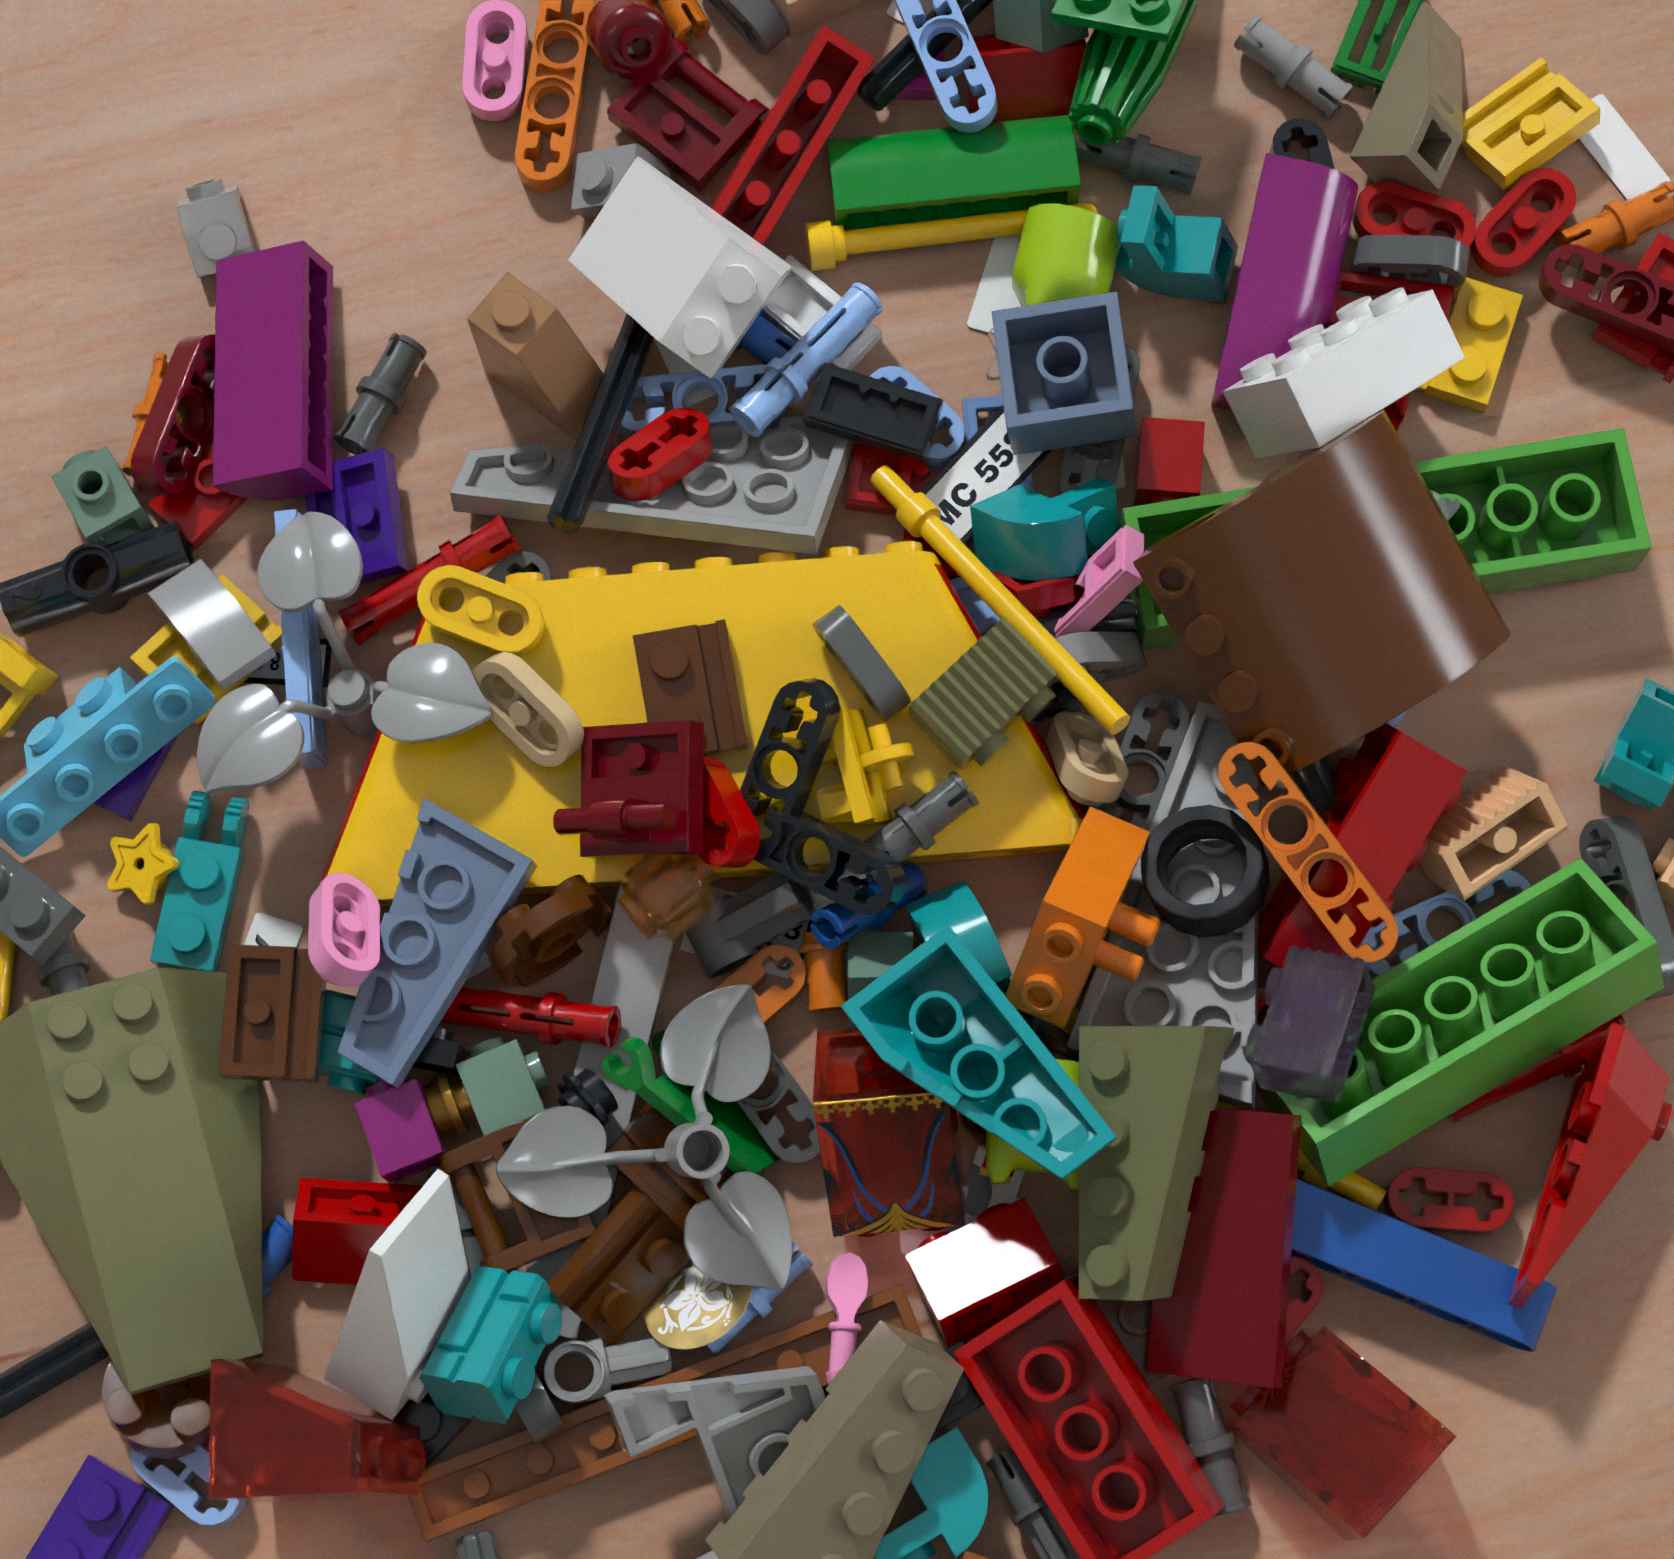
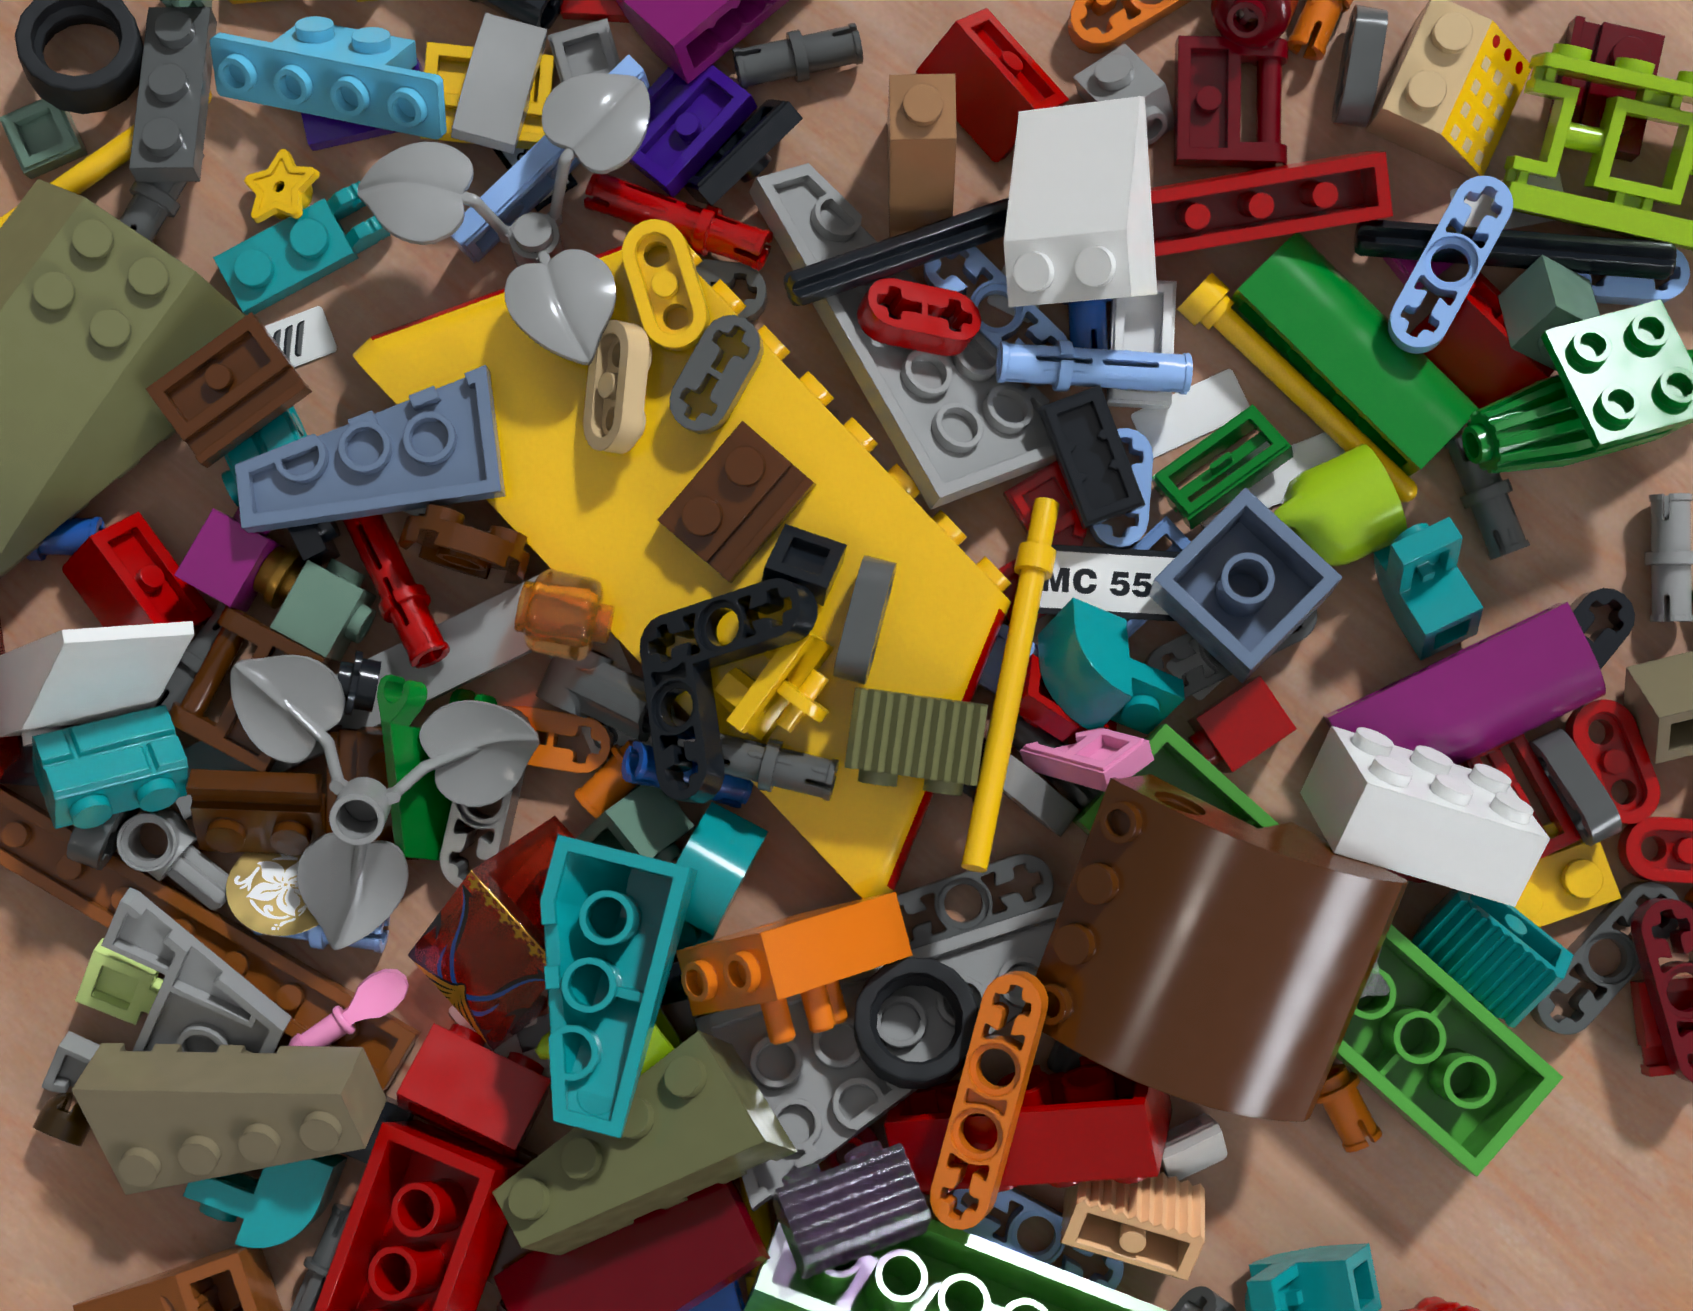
camera: 50 degrees right, 10 degrees up
(238, 553) = (584, 50): none -> light grey tile
(344, 930) = (325, 396): bright pink plate -> none
(420, 489) = (744, 152): none -> black plate
(532, 256) = (992, 80): none -> red panel
(594, 623) = (703, 366): none -> dark grey beam
(639, 790) = (618, 530): dark red plate -> none
(668, 1492) = (118, 985): none -> yellowish green plate
(726, 807) = (650, 601): red beam -> none
(777, 667) = (806, 560): none -> black plate
(901, 322) = (1192, 415): none -> white sticker
(980, 329) = (1227, 489): none -> green tile
(1086, 758) = (933, 855): tan plate -> none
(1472, 748) = (1193, 1147): none -> white slope
(1488, 408) = (1493, 953): none -> teal brick
(1532, 615) = (1347, 1109): none -> orange pin
(1583, 381) = (1583, 1001): none -> dark grey beam

